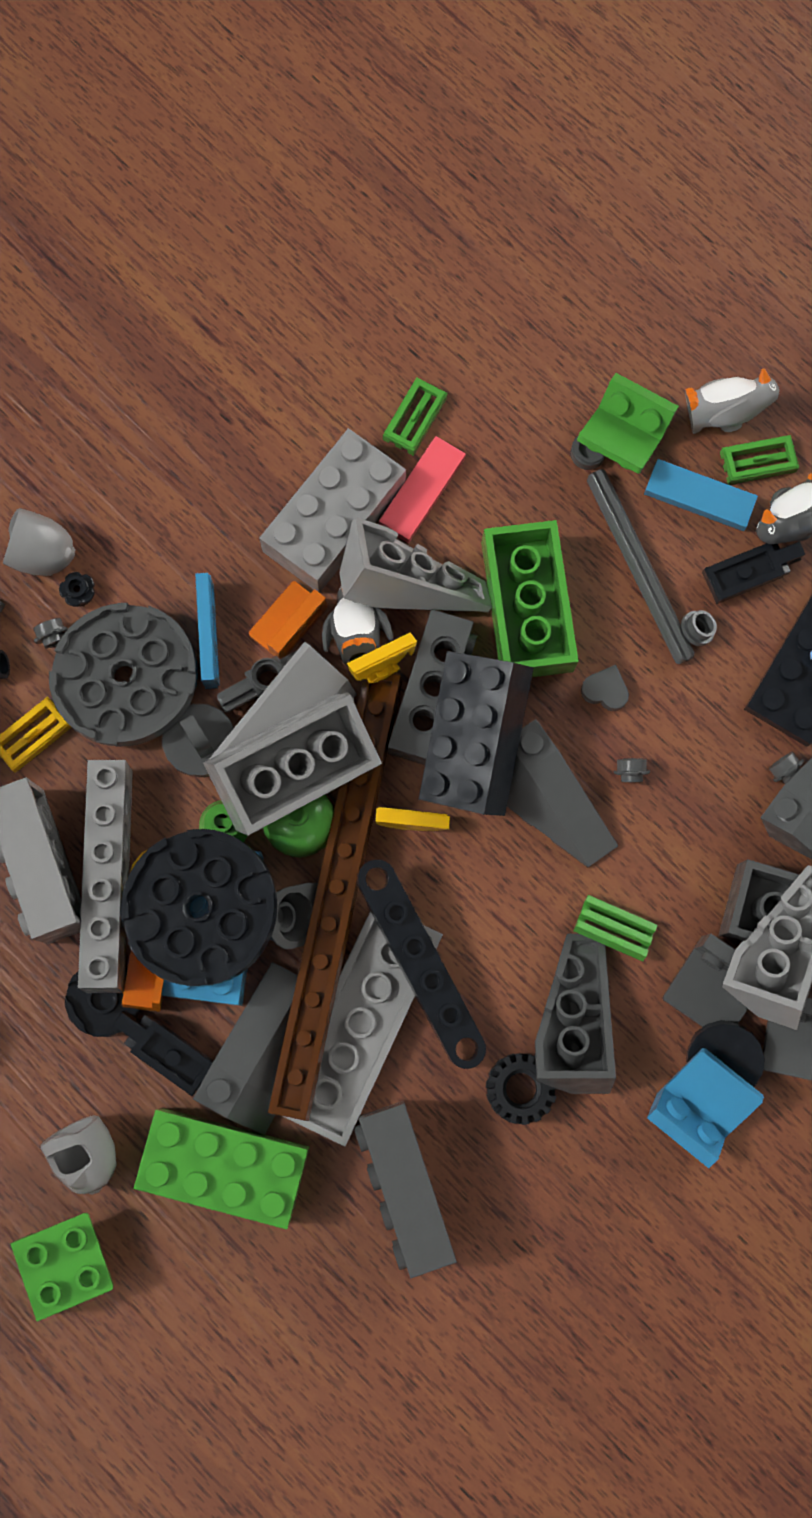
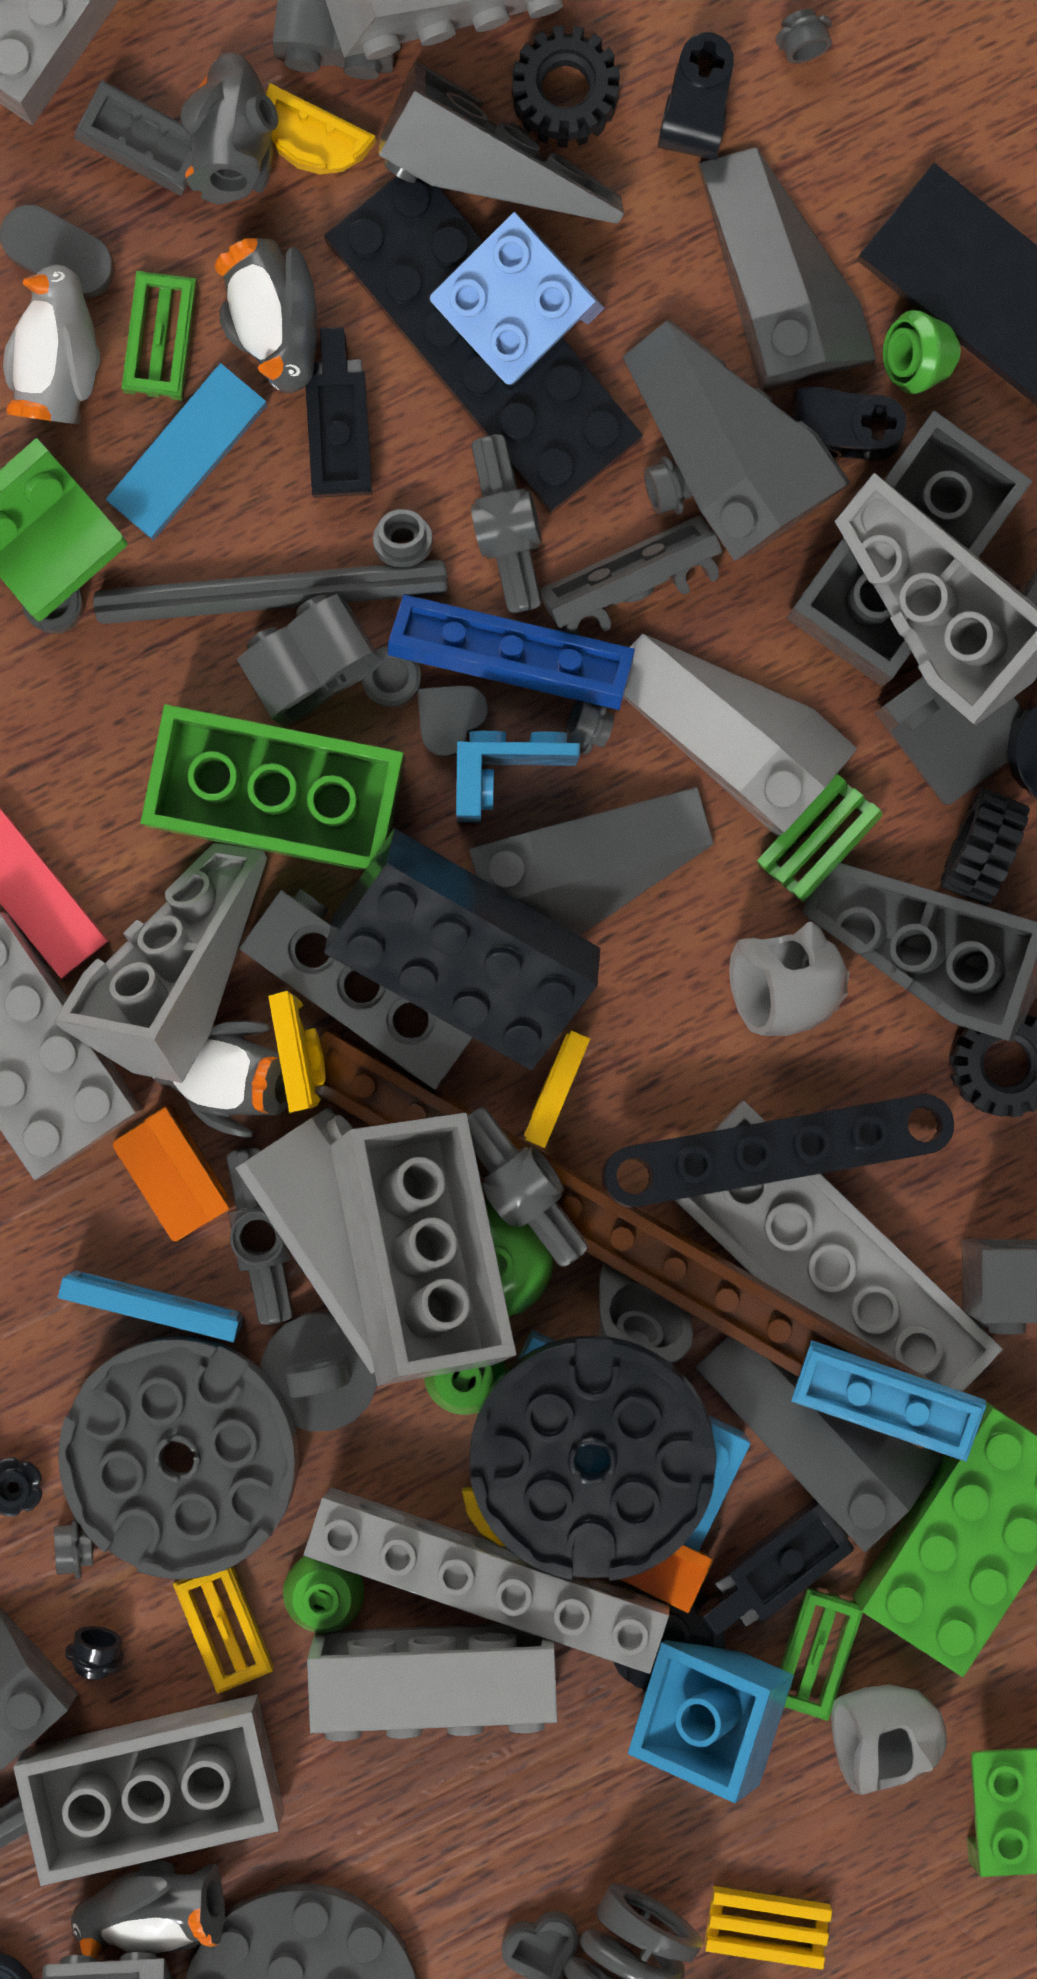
camera: 65 degrees left, 10 degrees up
(61, 1040) = (710, 1717): none -> dark azure slope
(72, 788) = (304, 1590): none -> bright green cone
(86, 1096) = (831, 1604): none -> bright green tile
(291, 1080) = (889, 1400): none -> dark azure tile
(348, 815) = (524, 1188): none -> dark grey axle
(524, 936) = (787, 981): none -> light grey piece
(596, 709) = (491, 748): none -> dark azure bracket
(610, 597) = (308, 659): none -> dark grey brick
(616, 648) = (393, 681): none -> dark grey tile
(648, 1026) = (985, 846): none -> black tyre
(657, 710) = (511, 652): none -> blue plate
(659, 861) = (743, 735): none -> light grey wedge
(727, 764) = (632, 574): none -> dark grey plate
(729, 682) = (506, 523): none -> dark grey axle
(789, 376) = (41, 239): none -> dark grey tile

